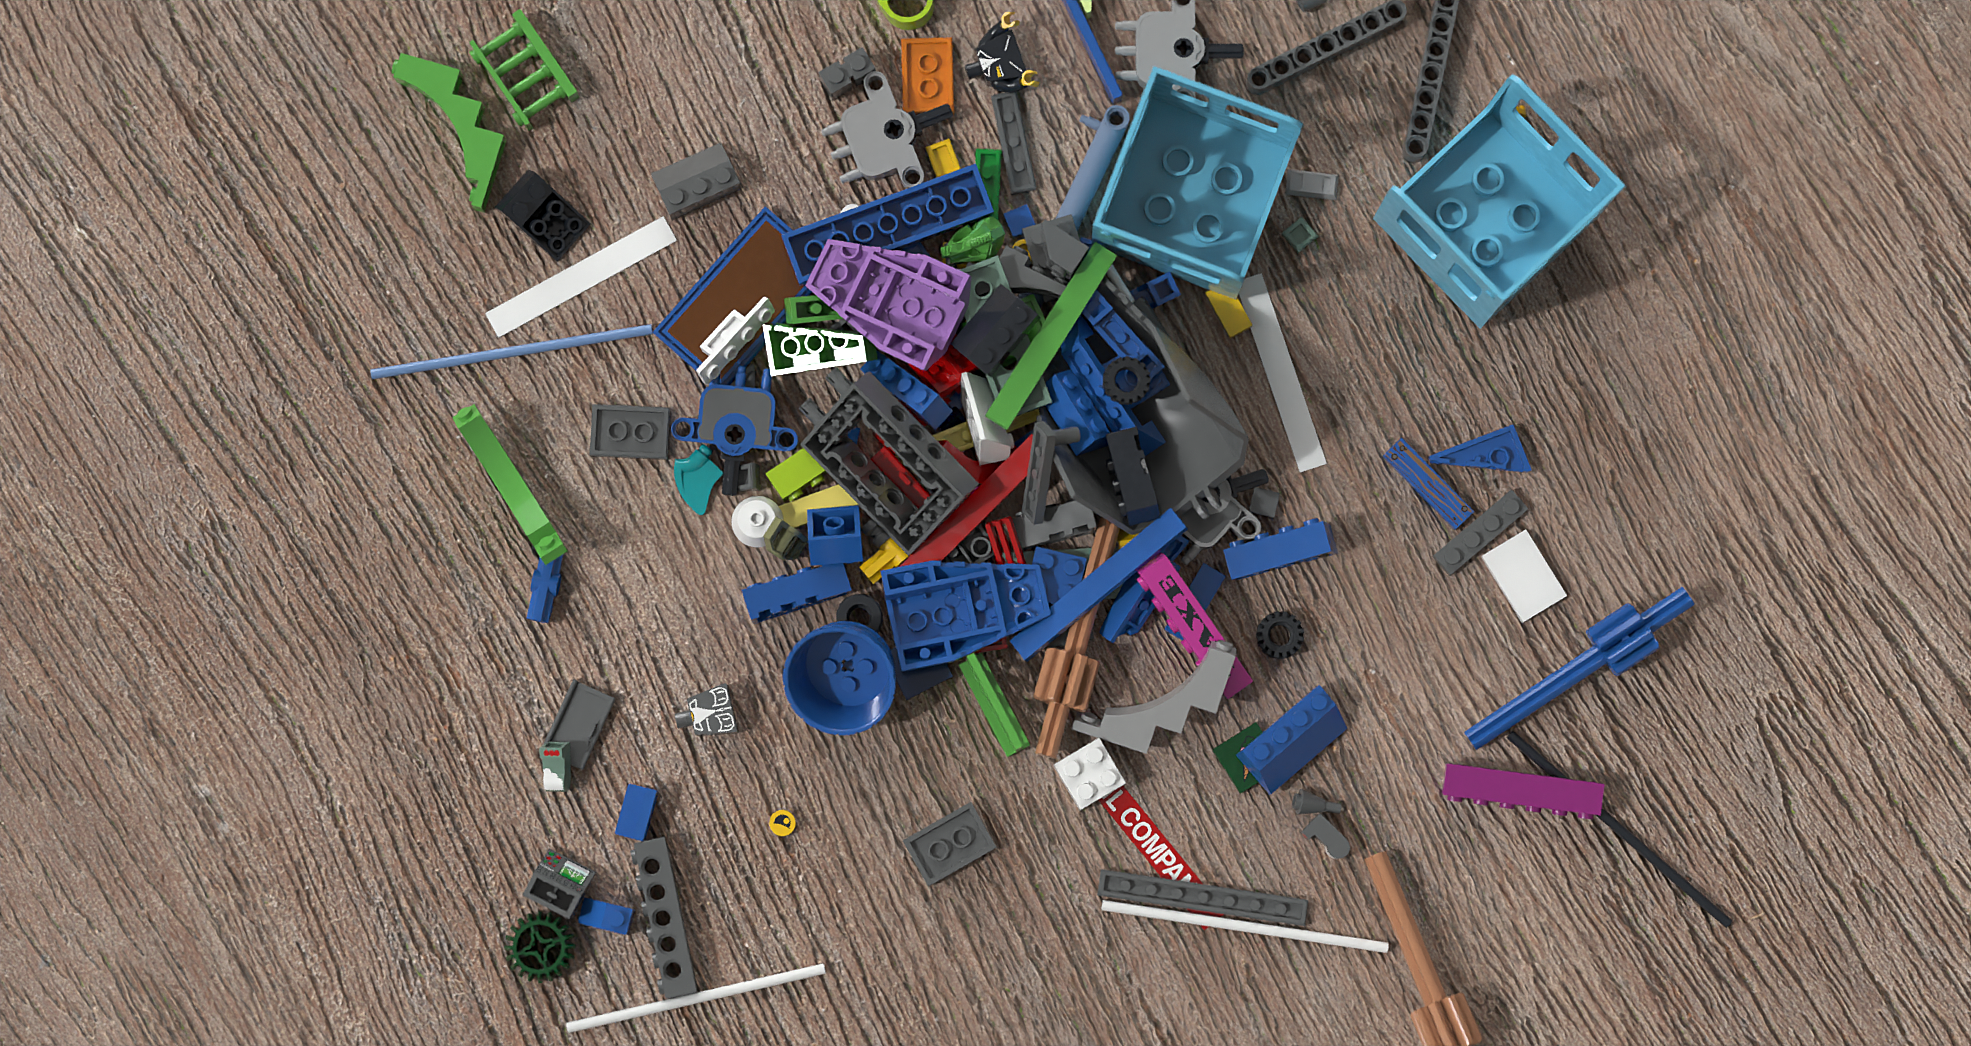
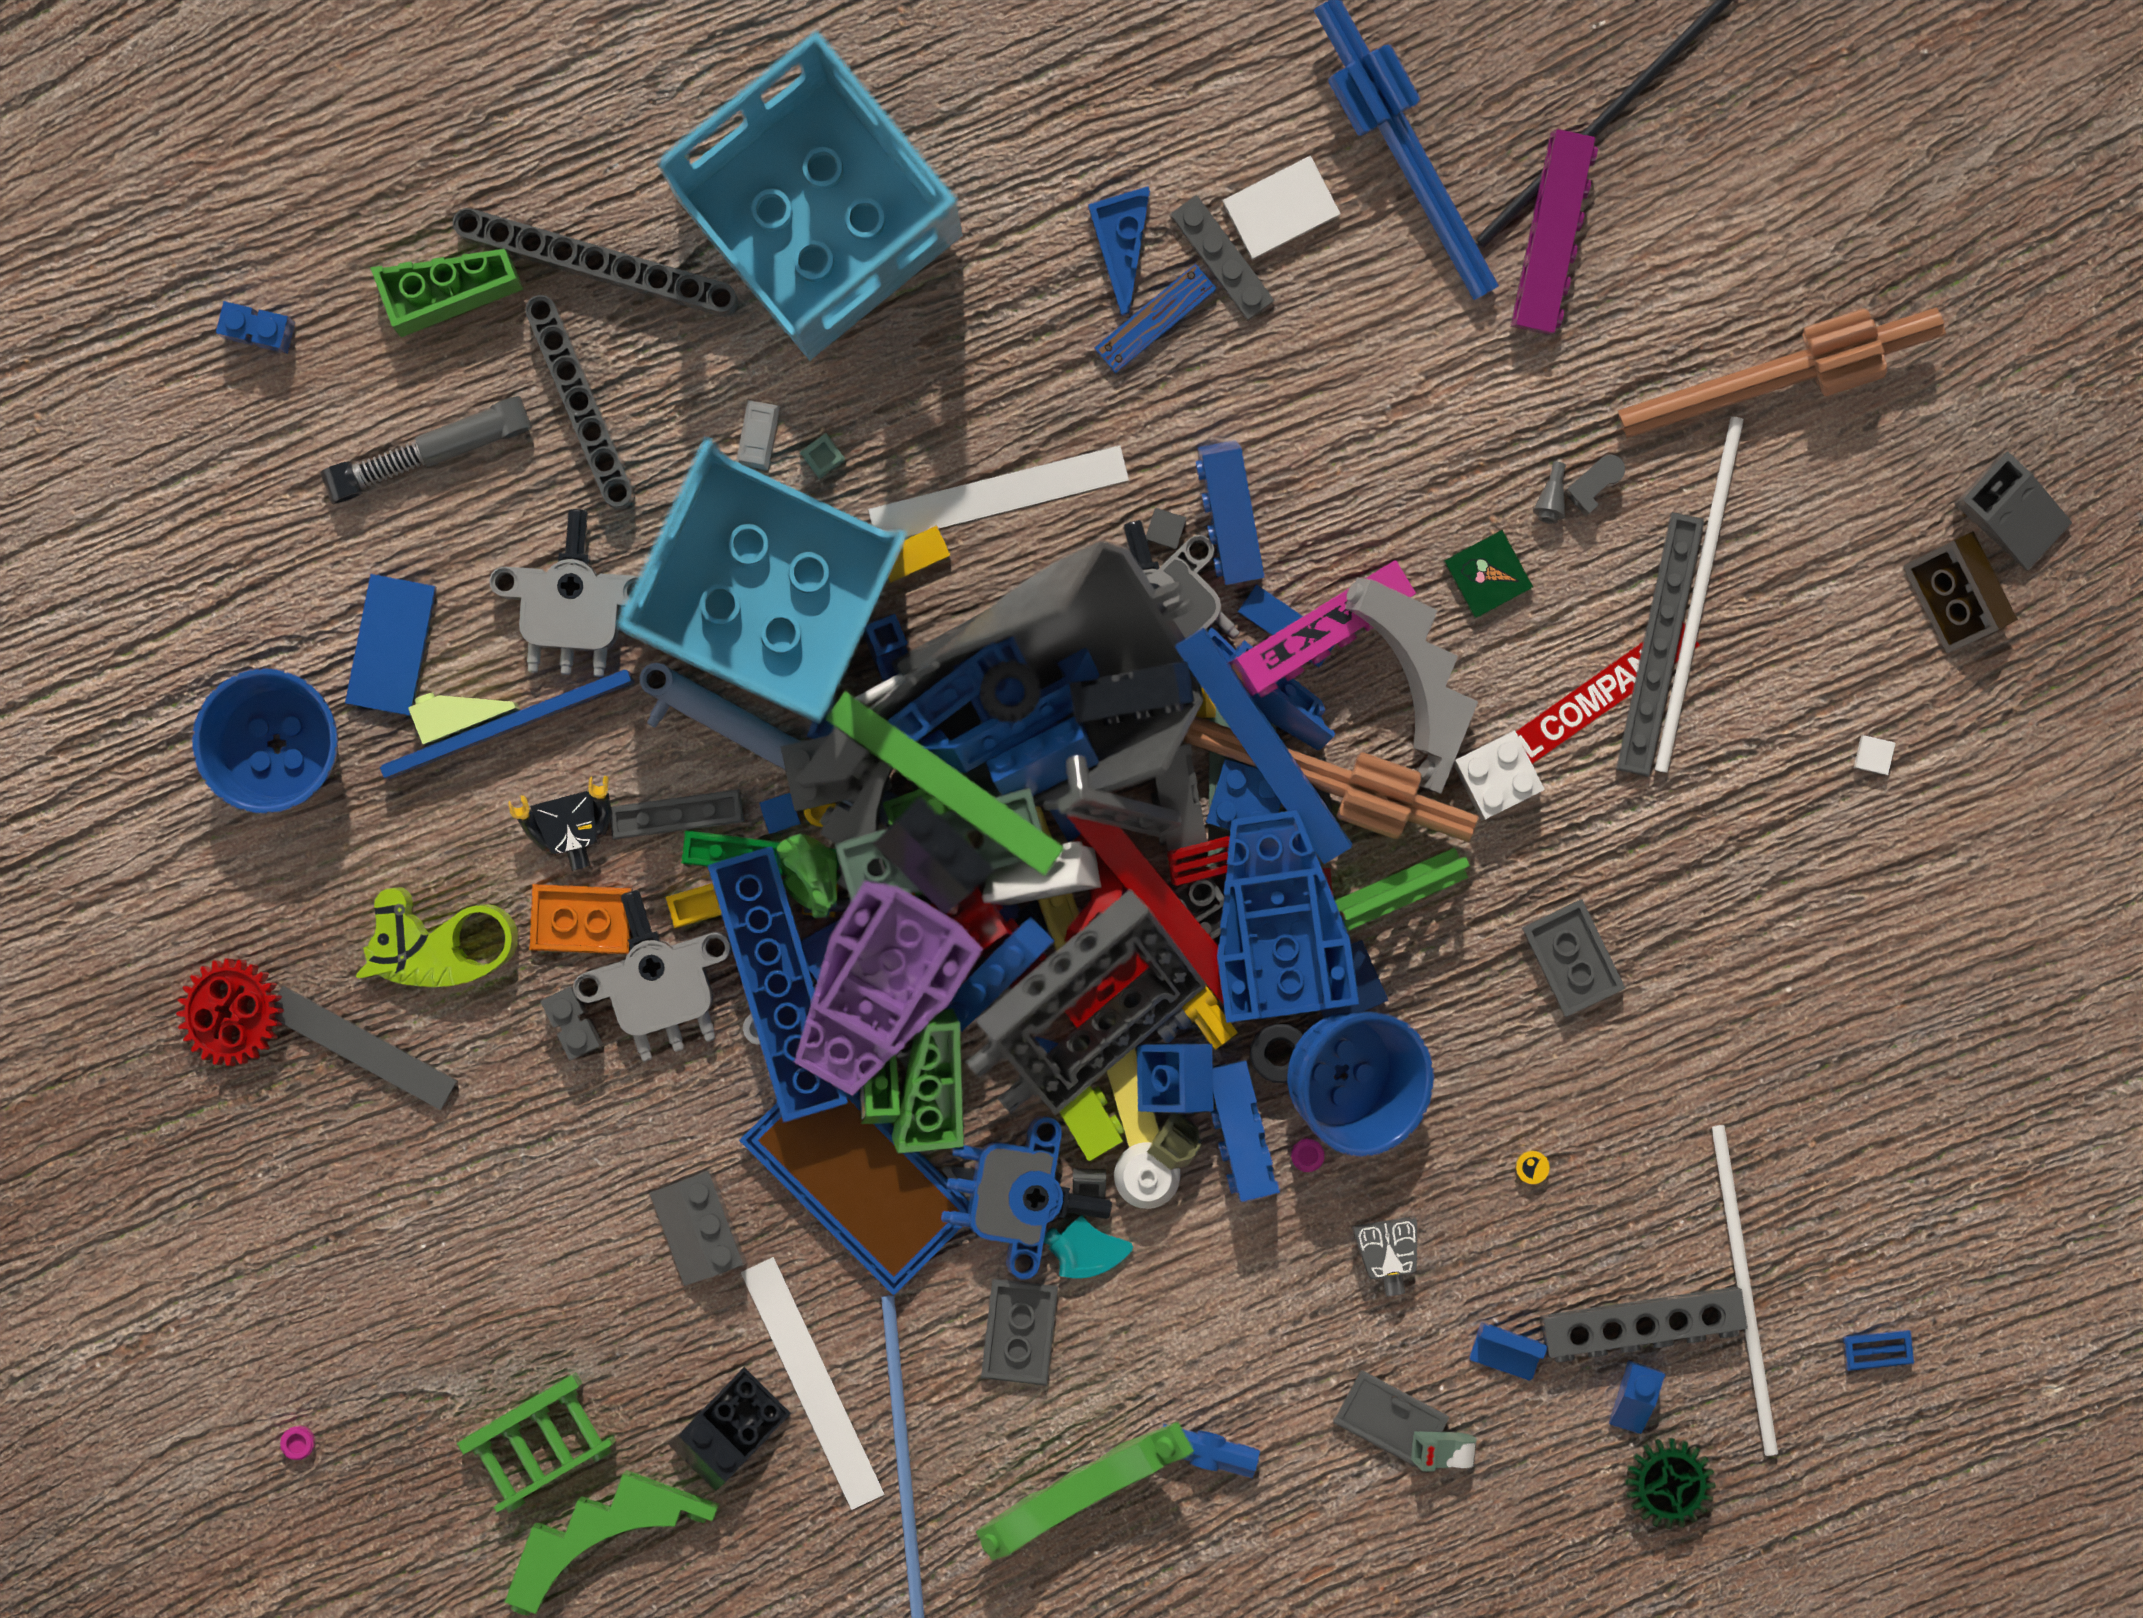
camera: 80 degrees left, 5 degrees up
(559, 884) = (1593, 1454): dark grey slope -> none
(731, 337) = (909, 1194): white bracket -> none
(780, 645) = (1307, 1155): none -> dark pink tile
(1286, 620) = (1343, 502): black tyre -> none
(1293, 739) = (1470, 515): blue slope -> none

